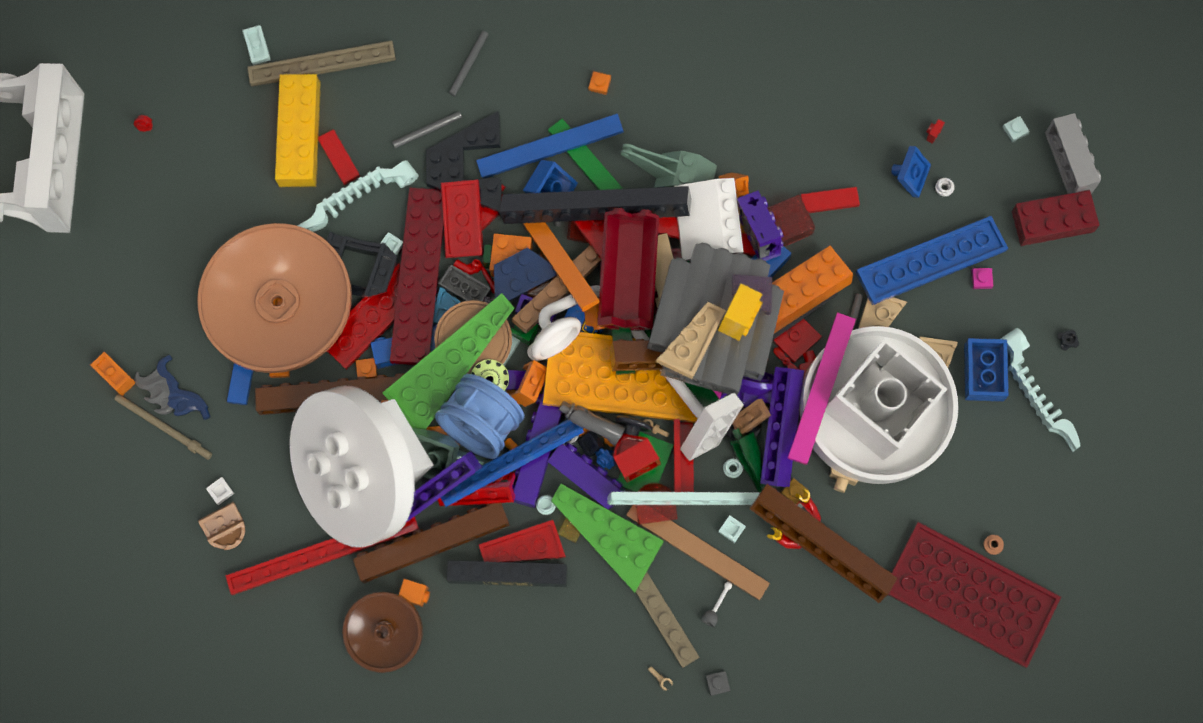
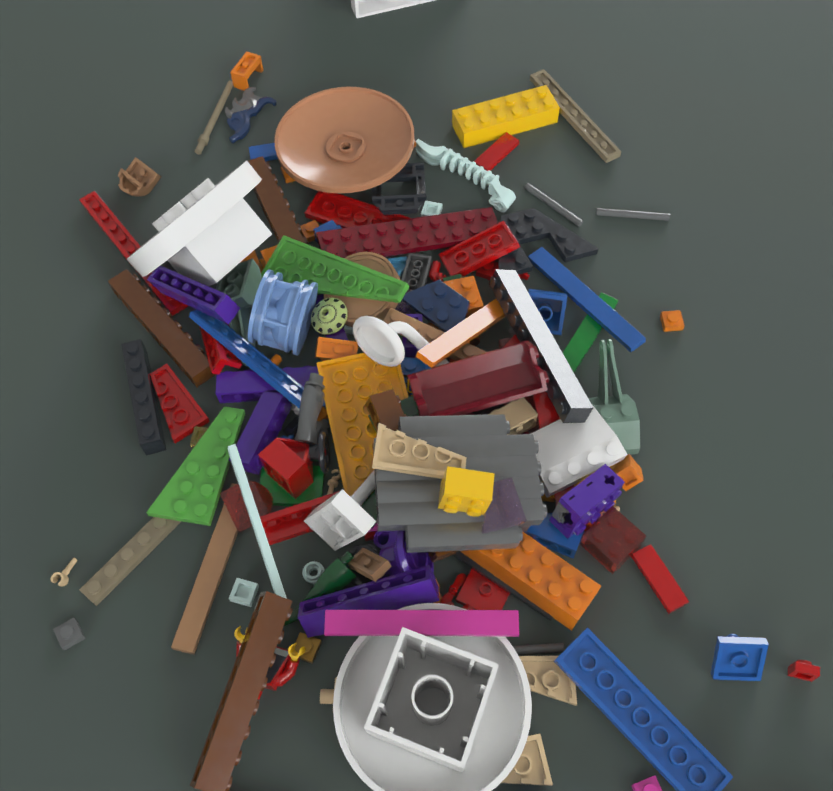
camera: 70 degrees right, 15 degrees down
(143, 123) = (463, 26): red plate -> none
(220, 491) = (169, 166): white plate -> none
(256, 45) = (566, 70): light aqua plate -> none
(382, 631) = (64, 313): reddish brown dish -> none
(415, 592) = (108, 327): orange brick -> none
(545, 505) = (220, 404): light aqua plate -> none
(710, 617) = (140, 601): hinge -> none
(946, 182) = (745, 701): white plate -> none

